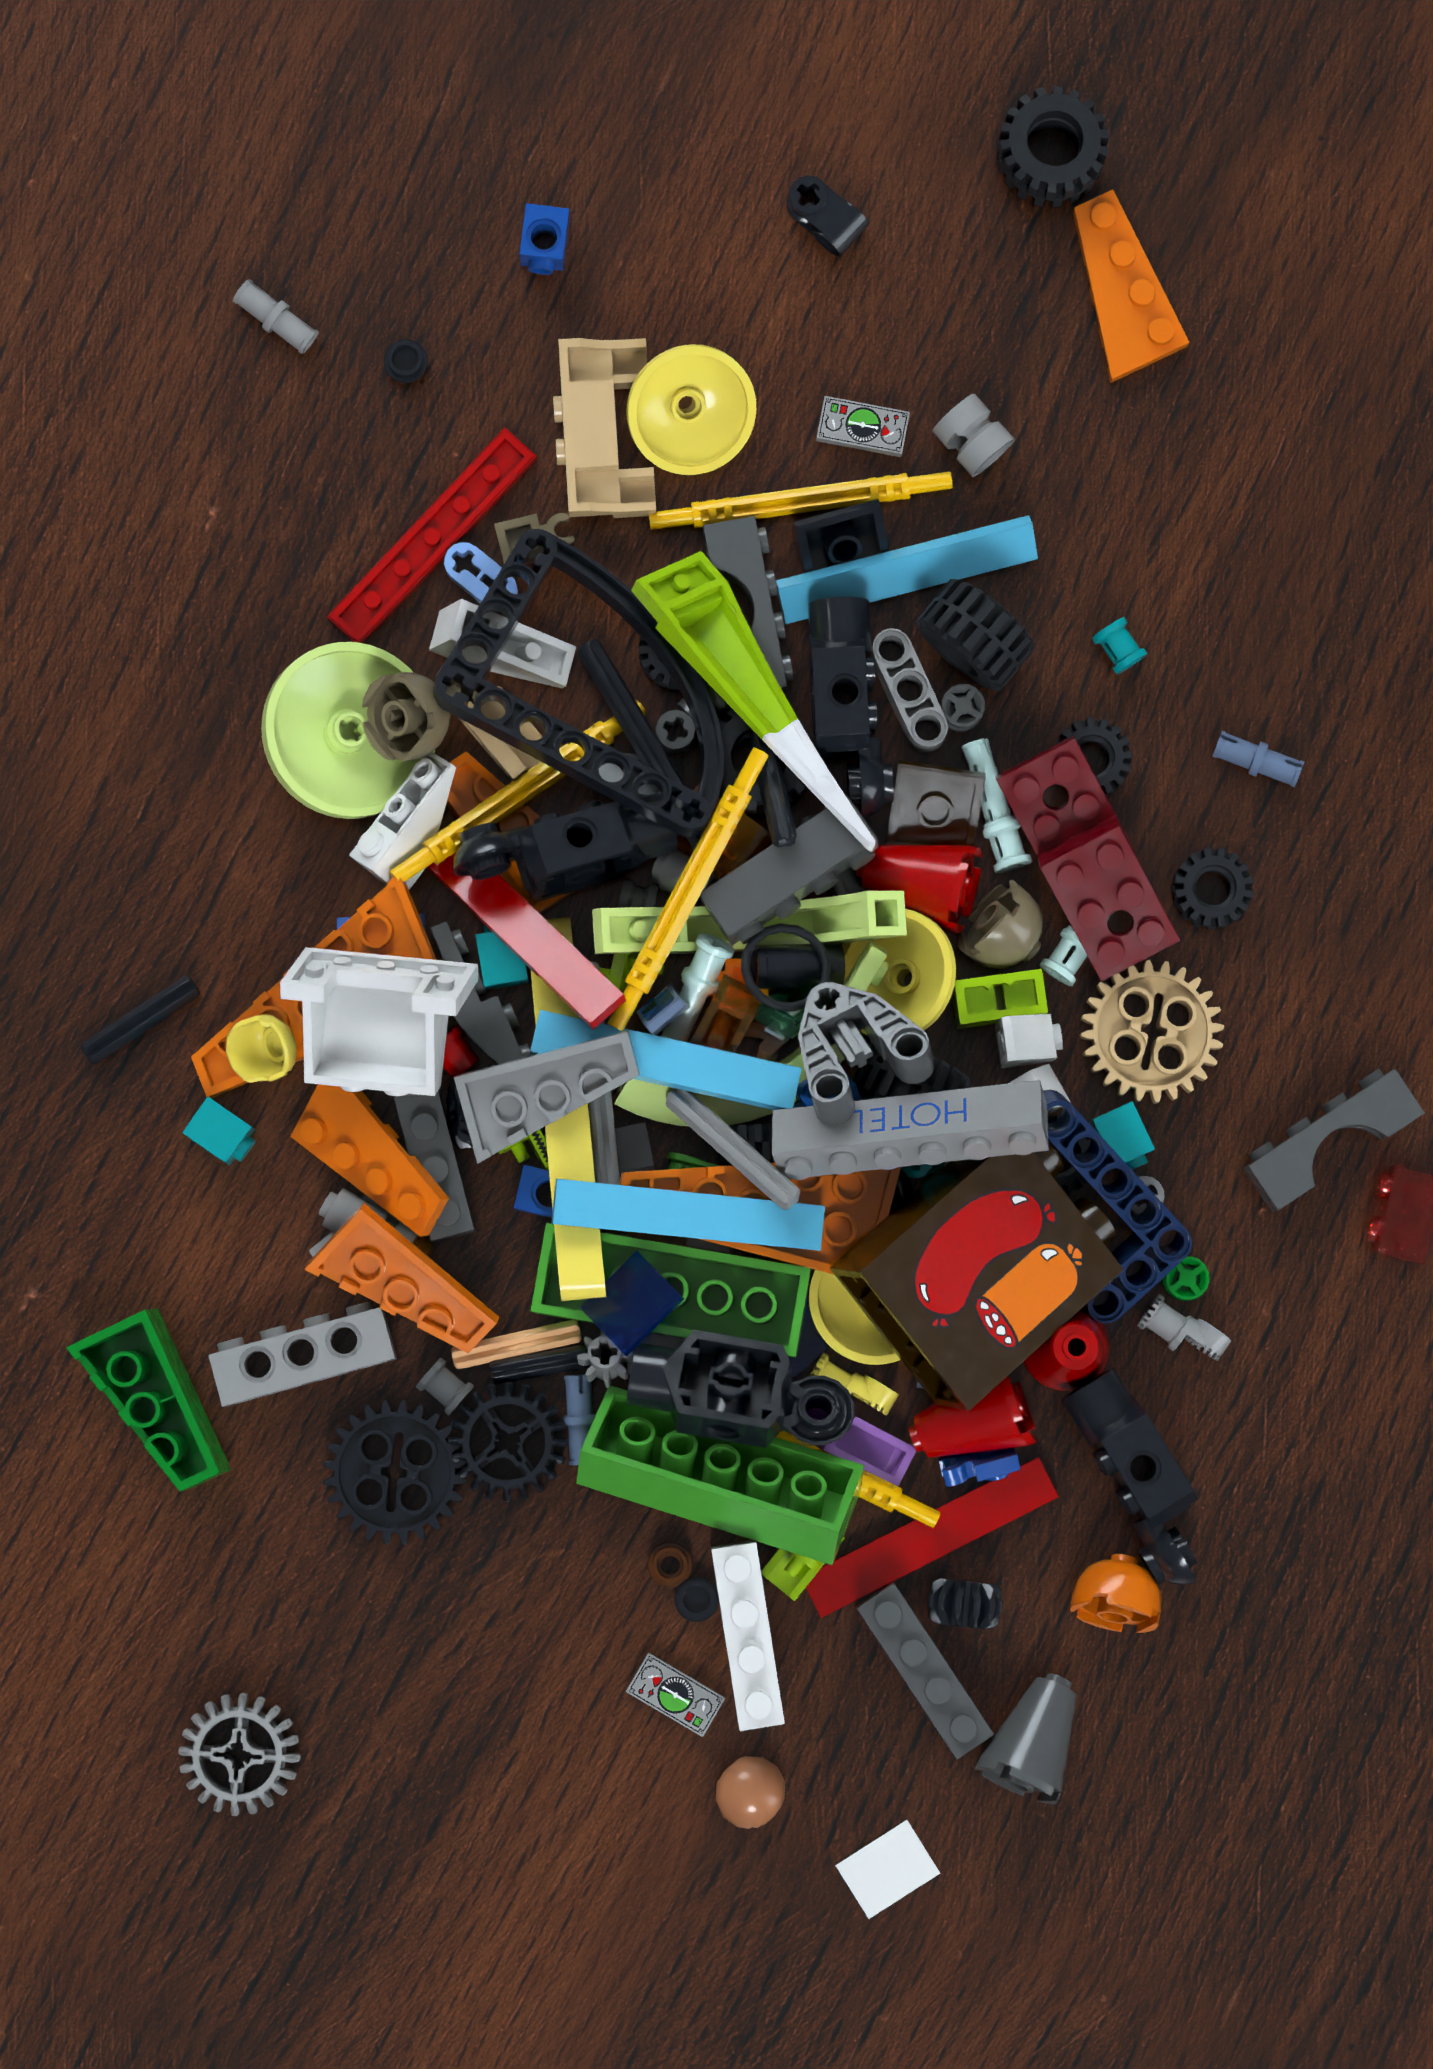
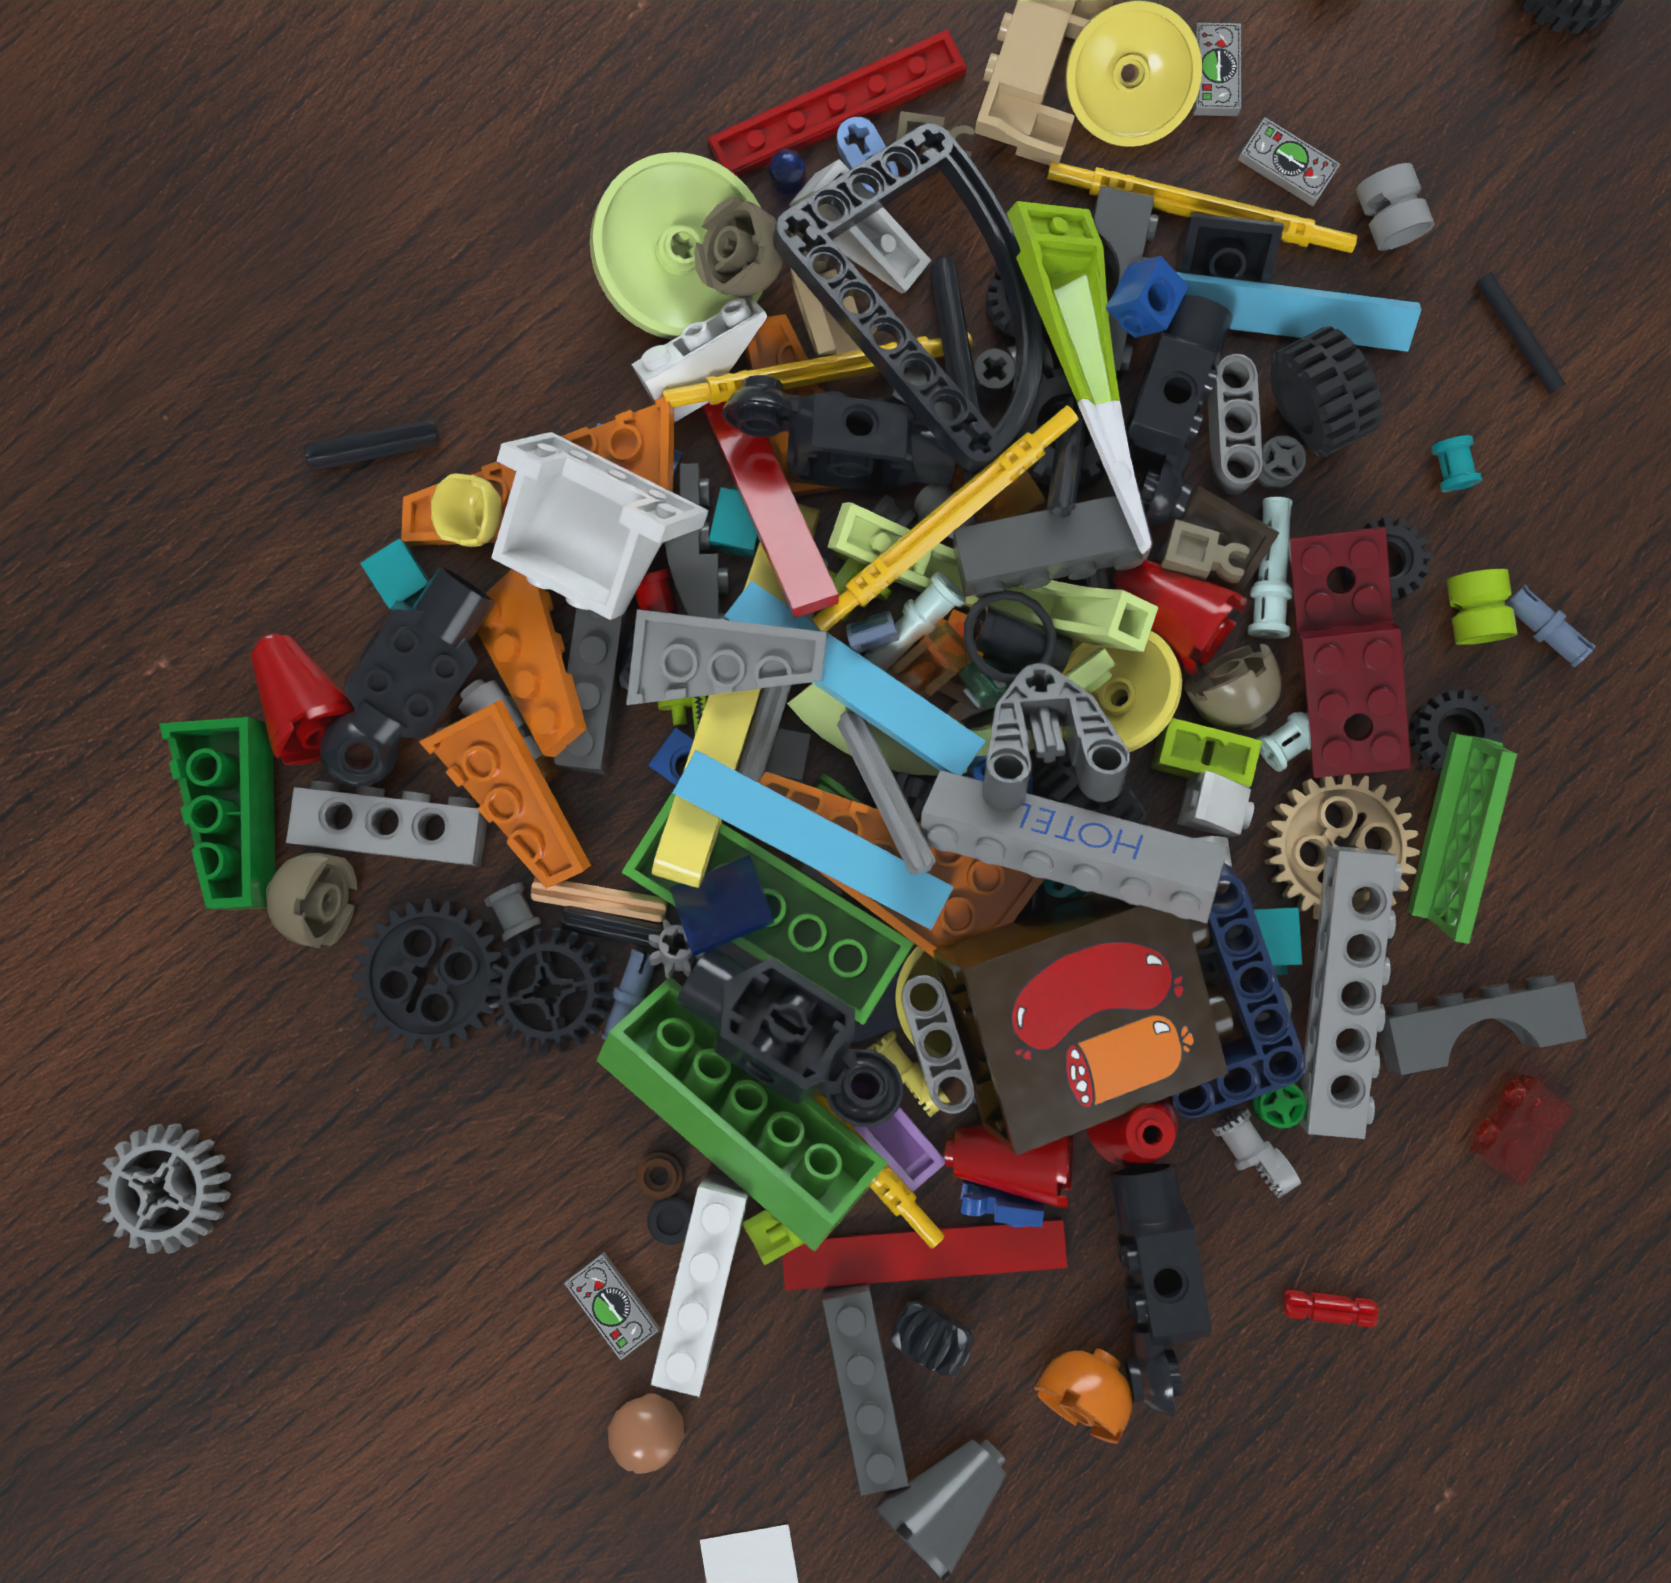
camera: 30 degrees right, 0 degrees up
(178, 1276) = (295, 698): none -> red cone
(262, 1448) = (311, 899): none -> dark tan cylinder
(267, 1216) = (406, 676): none -> black brick
(413, 618) = (787, 172): none -> clear blue piece
(765, 365) = (1221, 69): none -> tile
(785, 615) = (1147, 297): none -> blue brick
(886, 1356) = (953, 1061): none -> light grey beam
(917, 823) = (1196, 552): none -> dark tan plate
(1128, 299) = (1593, 138): orange wing -> none
(1131, 501) = (1520, 333): none -> black bar
(1159, 1053) = (1344, 873): none -> light grey brick
(1189, 765) = (1481, 606): none -> lime wheel
(1243, 978) = (1461, 834): none -> bright green fence
(1300, 1438) = (1330, 1308): none -> red axle

